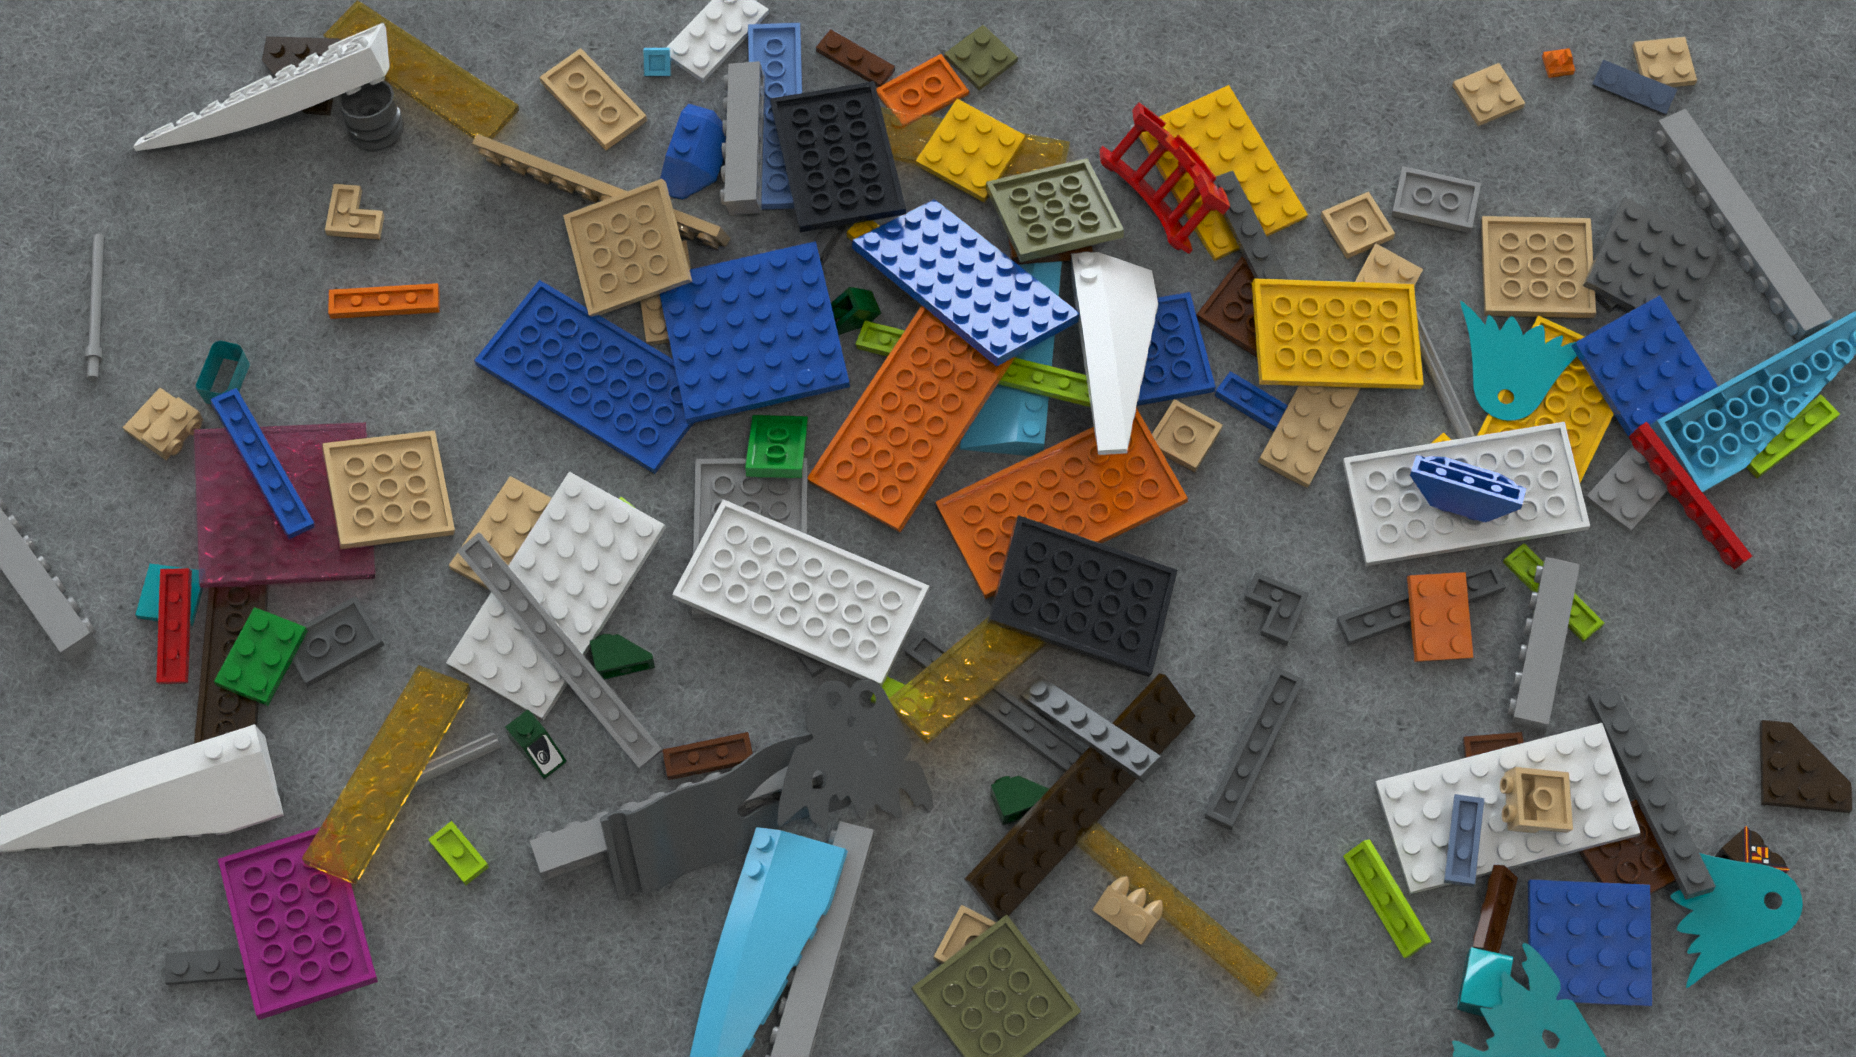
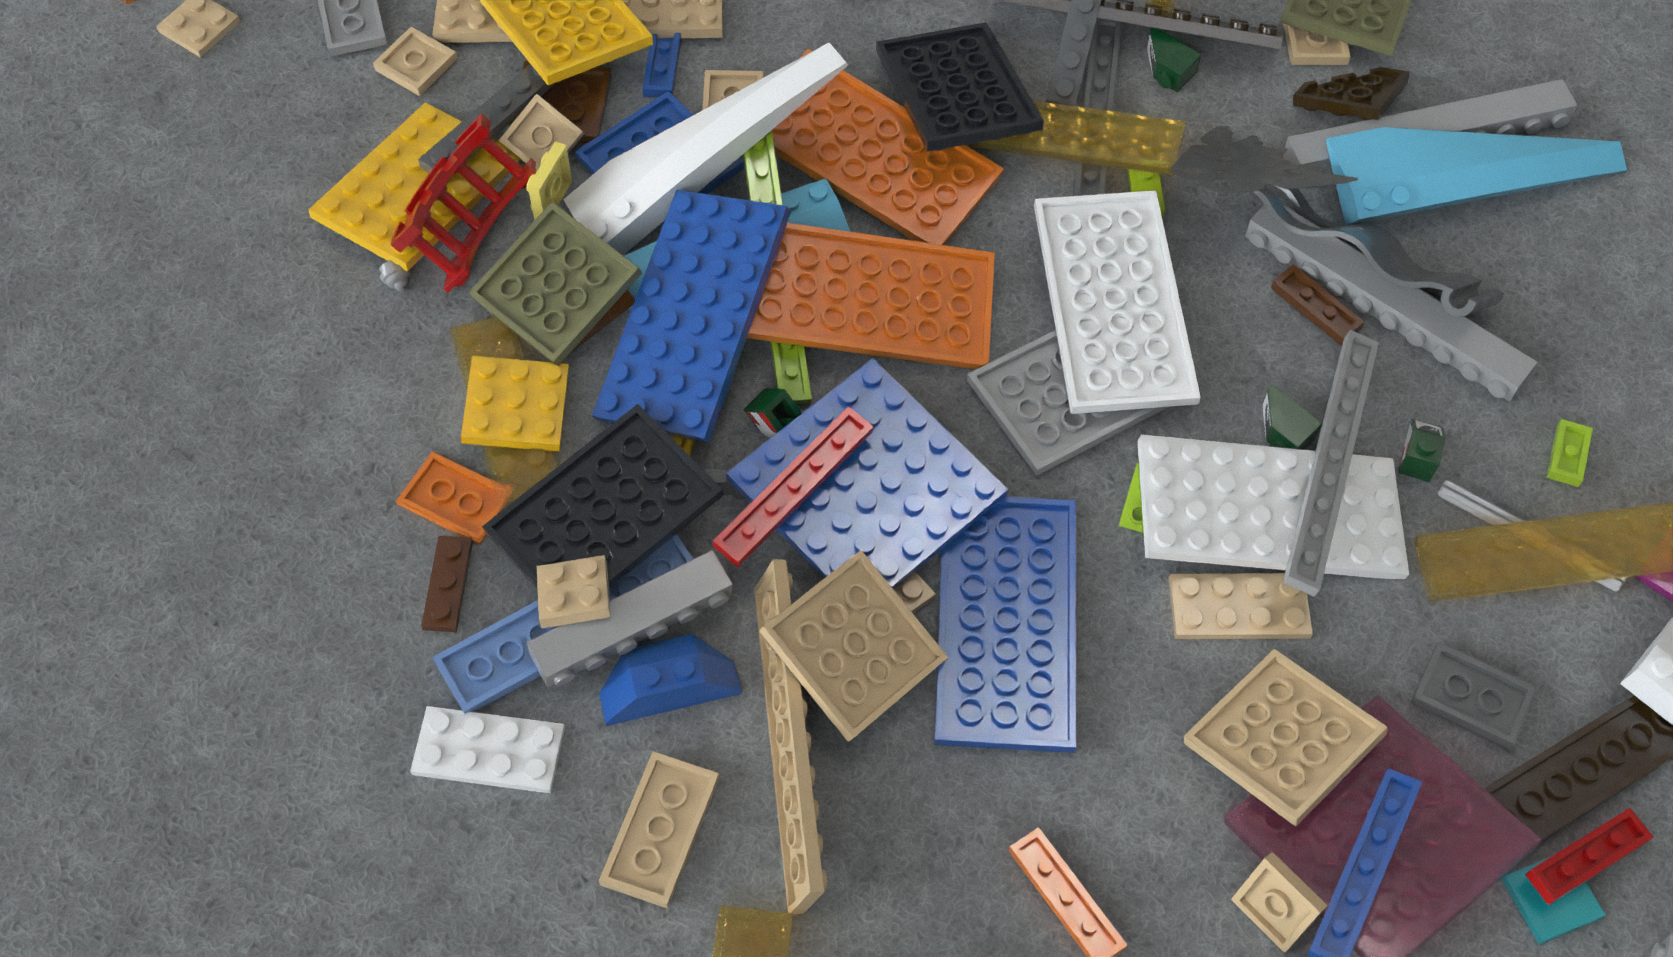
camera: 120 degrees left, 5 degrees down
(261, 656) = (1549, 743): green plate -> none
(295, 408) = (1279, 902): none -> tan plate
(657, 61) = (569, 784): medium azure plate -> none
(770, 269) = (792, 486): none -> plate
(777, 446) = (979, 396): green plate -> none
(779, 103) = (573, 591): none -> tan plate
(891, 931) = (1352, 95): none -> dark brown plate
(981, 57) = (379, 462): olive plate -> none
(1158, 252) = (550, 180): none -> light yellow plate
(1214, 271) = (538, 130): none -> tan plate

